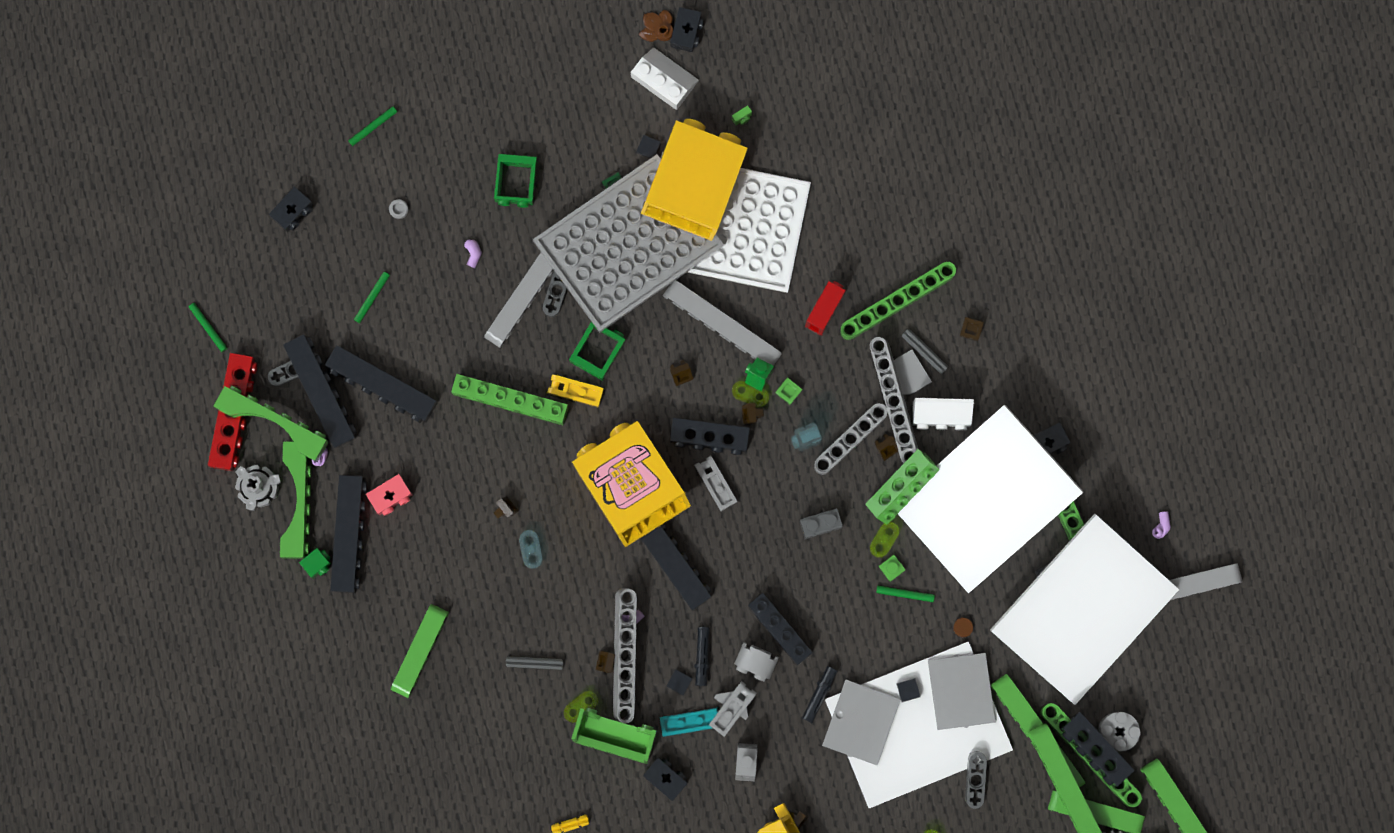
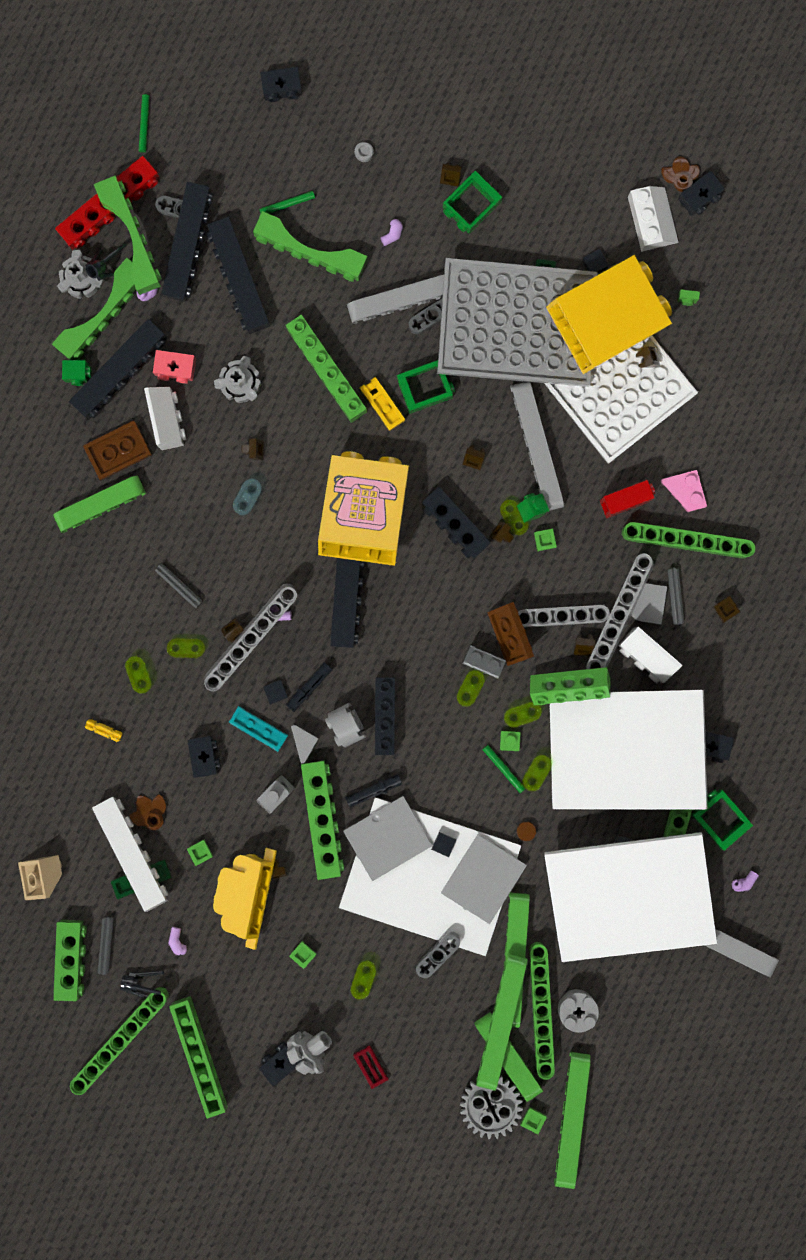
camera: 40 degrees right, 5 degrees up
(267, 468) = (96, 268): none -> black plant
(372, 126) = (397, 71): green bar -> none
(399, 597) = (117, 450): none -> reddish brown plate
(416, 540) = (165, 417): none -> white slope
(445, 455) = (239, 369): none -> light grey piece
(456, 305) = (345, 262): none -> bright green arch
(481, 172) = (450, 174): none -> dark brown tile
(561, 758) = (136, 676): none -> clear neon green plate
(613, 736) = (189, 691): bright green windscreen -> none
(716, 484) = (429, 565): light grey plate -> none
(732, 709) = (296, 747): light grey plate -> none
(751, 185) = (650, 357): none -> dark brown tile
(806, 437) = (528, 586): clear light blue brick -> none
(823, 485) = (510, 634): none -> reddish brown plate
(827, 553) = (470, 688): none -> clear neon green plate
(833, 787) = (323, 869): none -> bright green brick
(864, 263) = (687, 490): none -> bright pink wing
(933, 575) = (537, 773): none -> clear neon green plate
(1120, 509) = (732, 835): none -> green window
(1121, 767) = (554, 1043): black brick -> none

